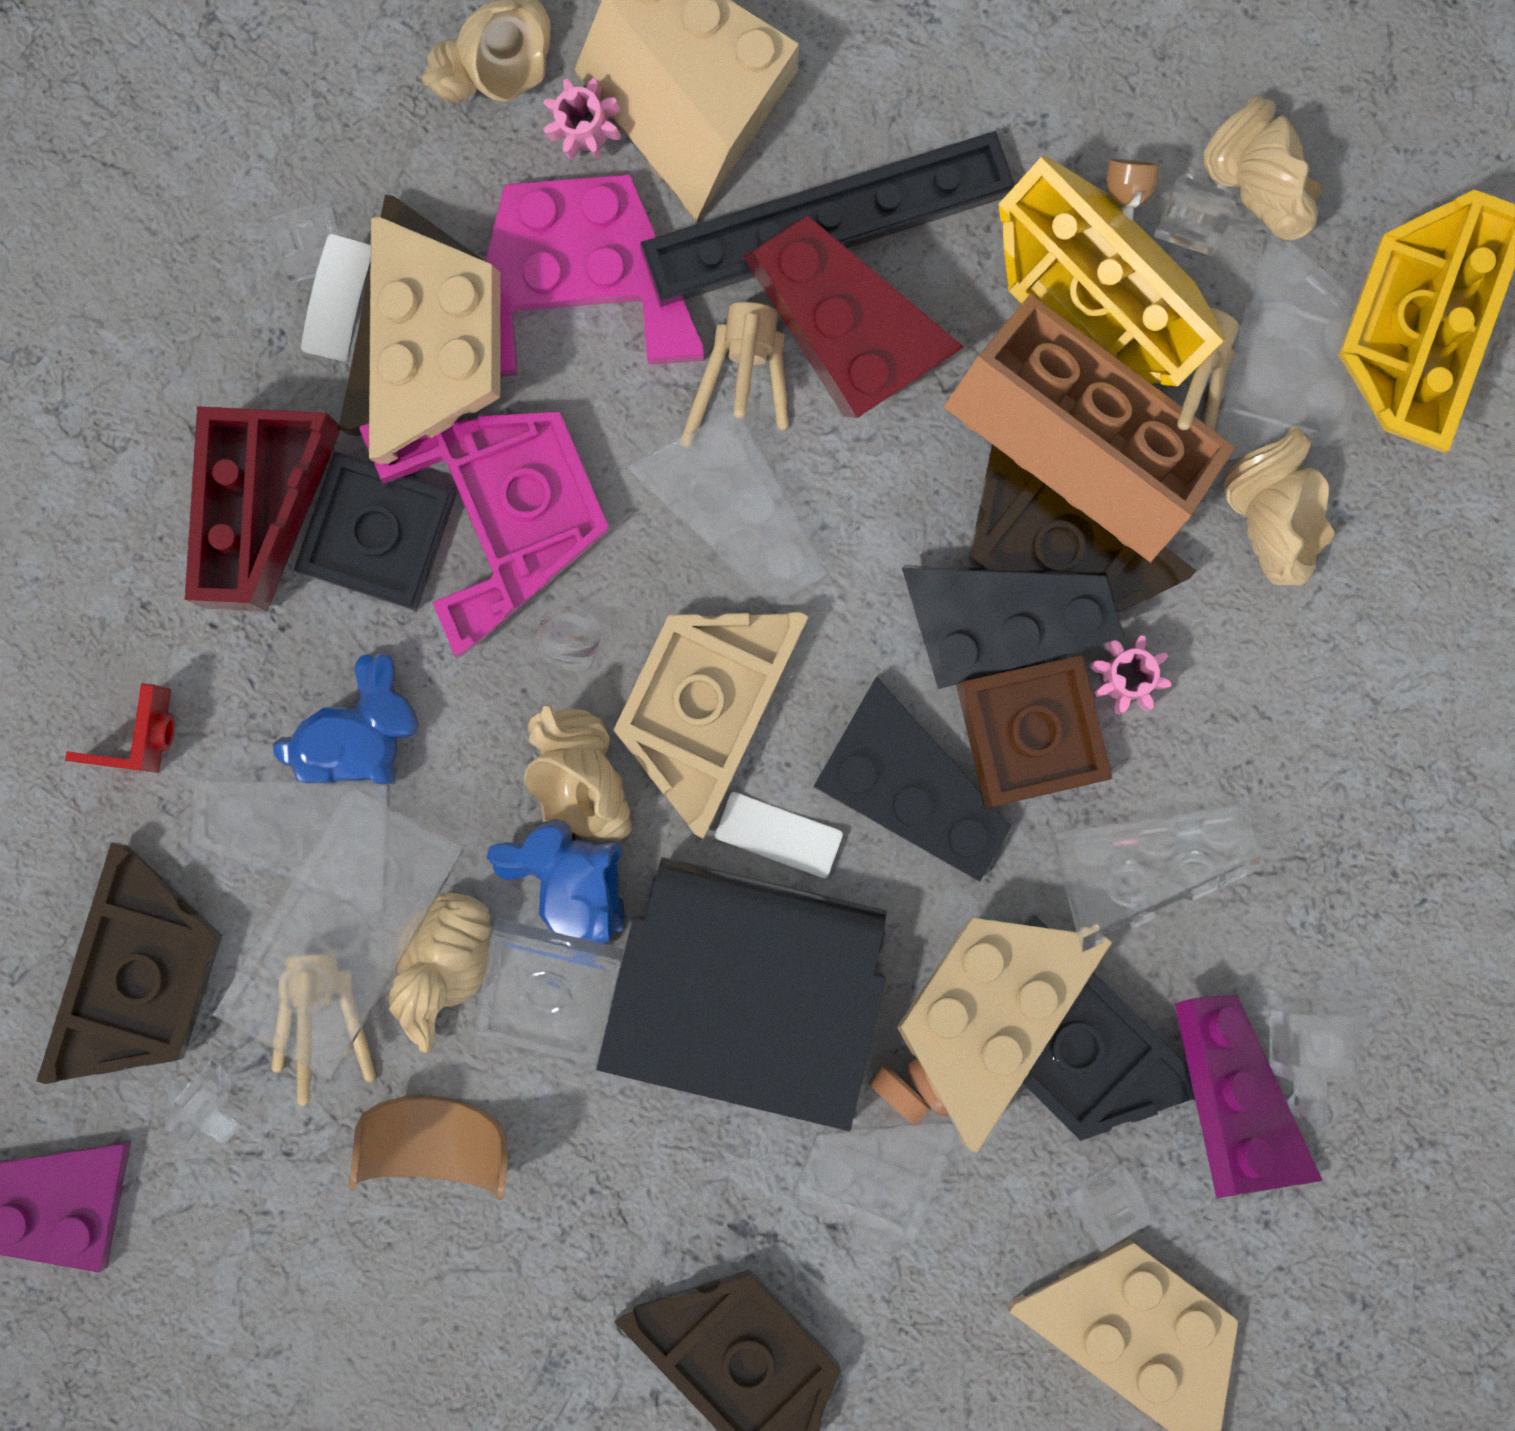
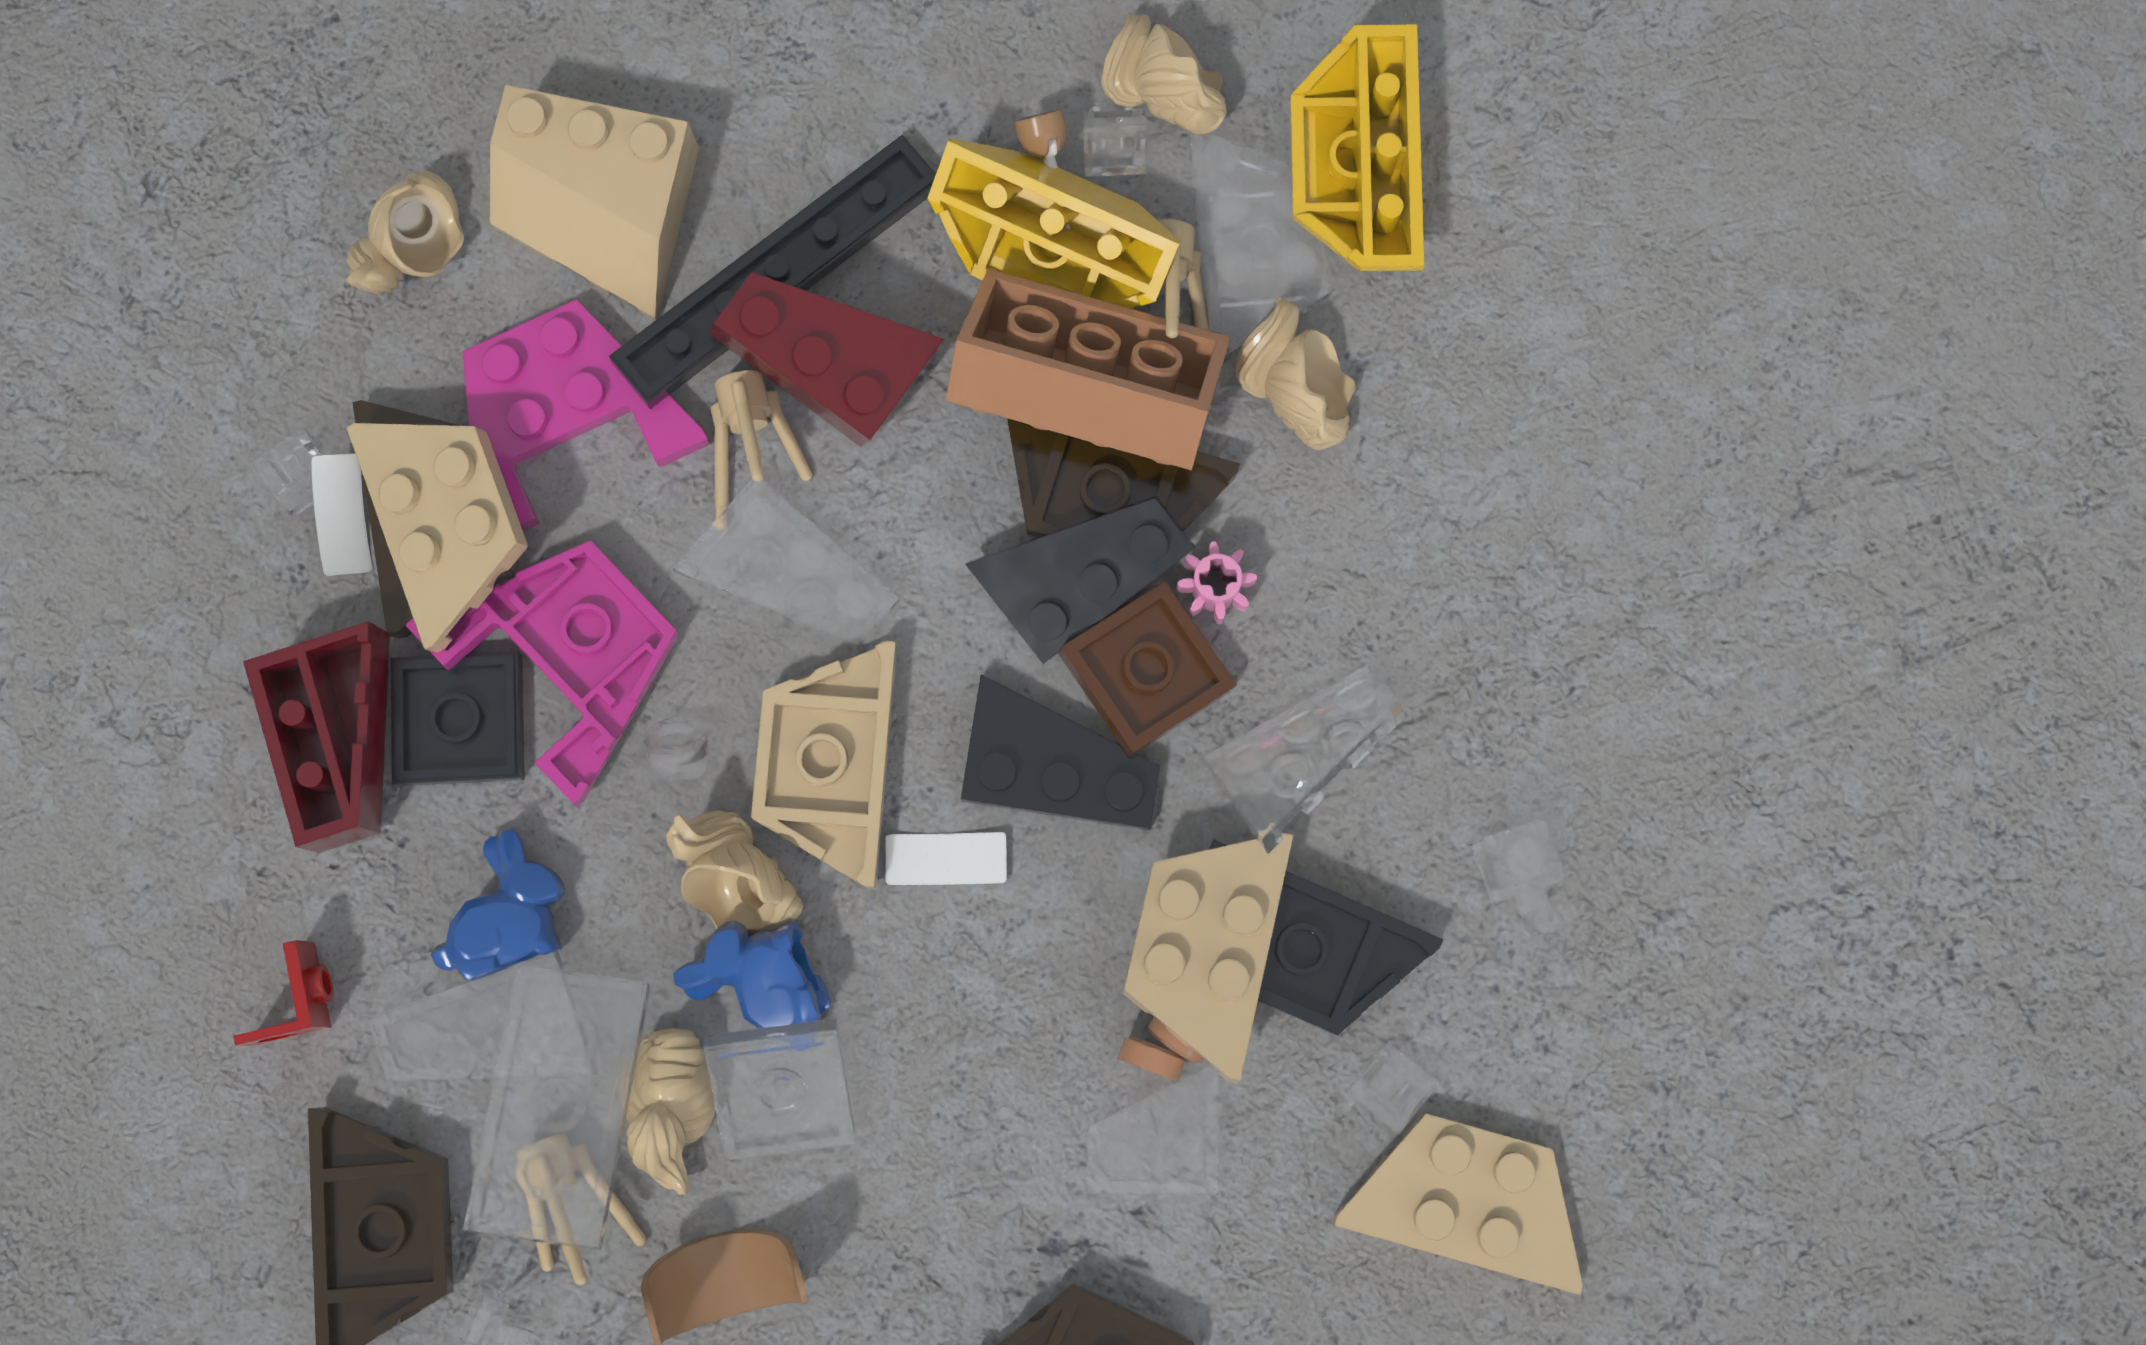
camera: 20 degrees left, 5 degrees down
(577, 102) = (503, 252): bright pink gear -> none
(748, 994) = (970, 1018): black piece -> none
(1239, 1103) = (1472, 941): magenta wing -> none

